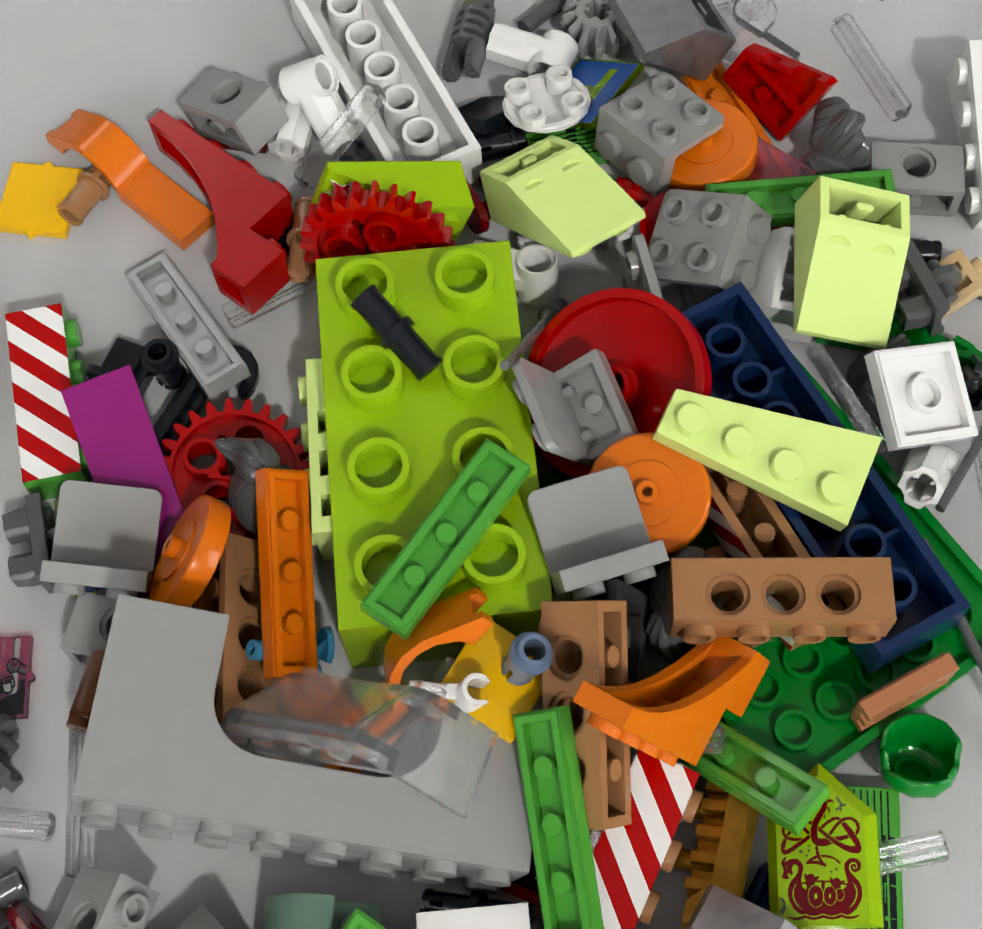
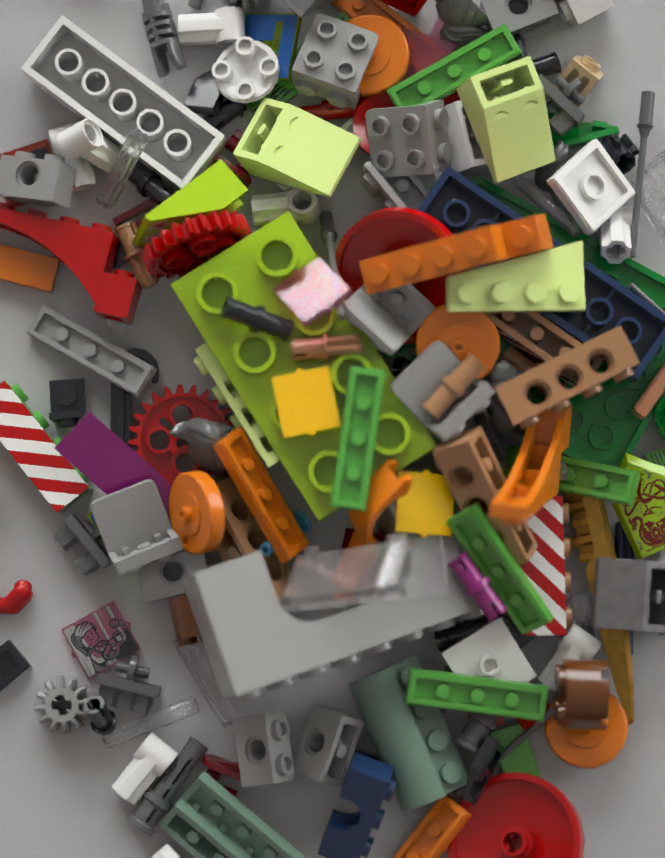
camera: 25 degrees left, 20 degrees up
(162, 360) = (85, 386): black pin -> none
(402, 460) = (305, 402): none -> yellow piece
(460, 694) = (409, 526): white hand -> none
(467, 409) = (326, 347): none -> medium nougat axle
(486, 331) = (312, 291): none -> clear pink piece
(512, 830) = (477, 586): none -> magenta pin
(518, 662) = (444, 491): sand blue pin -> none
(614, 532) = (453, 386): none -> medium nougat pin
(709, 362) = (456, 253): none -> orange arch

